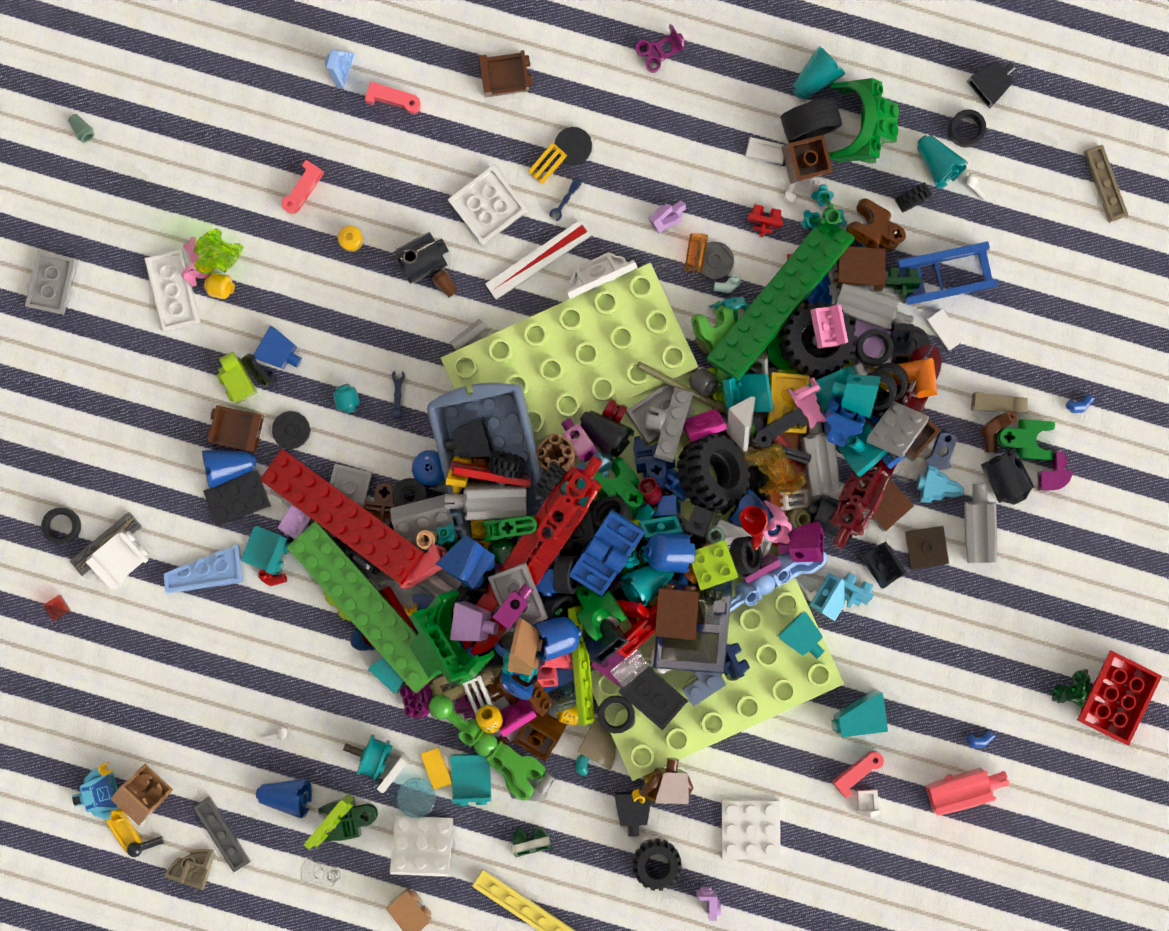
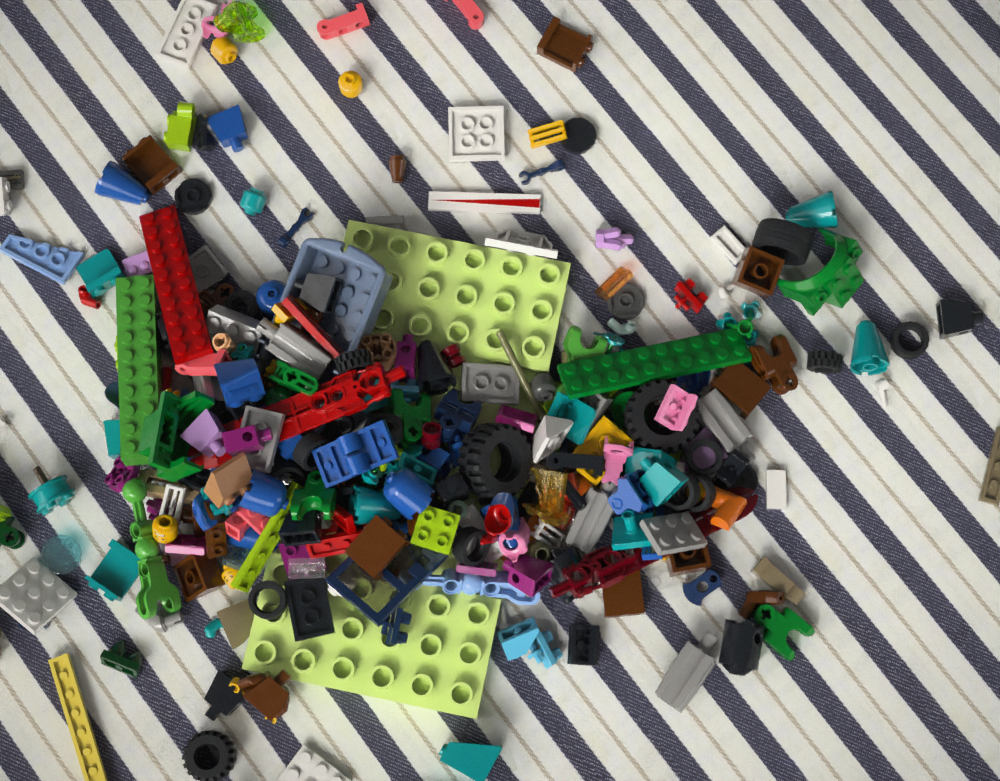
camera: 40 degrees right, 10 degrees down
(237, 498) = (111, 218): black plate -> none
(393, 773) = (57, 519): white tile -> none
(421, 257) = (393, 134): black cylinder -> none
(436, 768) = (96, 542): yellow tile -> none
(506, 464) = (331, 329): black tyre -> none
(654, 51) = (696, 109): magenta piece -> none
(669, 423) = (489, 395): light grey plate -> none
(703, 687) = (355, 629): sand blue brick -> none
(802, 635) = (469, 648): teal torso -> none
(903, 285) = (766, 426): dark green hips -> none
(926, 547) = (631, 658): dark brown plate -> none
(934, 258) = (778, 426): blue piece -> none
(936, 486) = (676, 612): medium azure rock -> none
(1058, 476) = (784, 679): magenta brick -> none
(1079, 406) = (846, 634): blue arm -> none

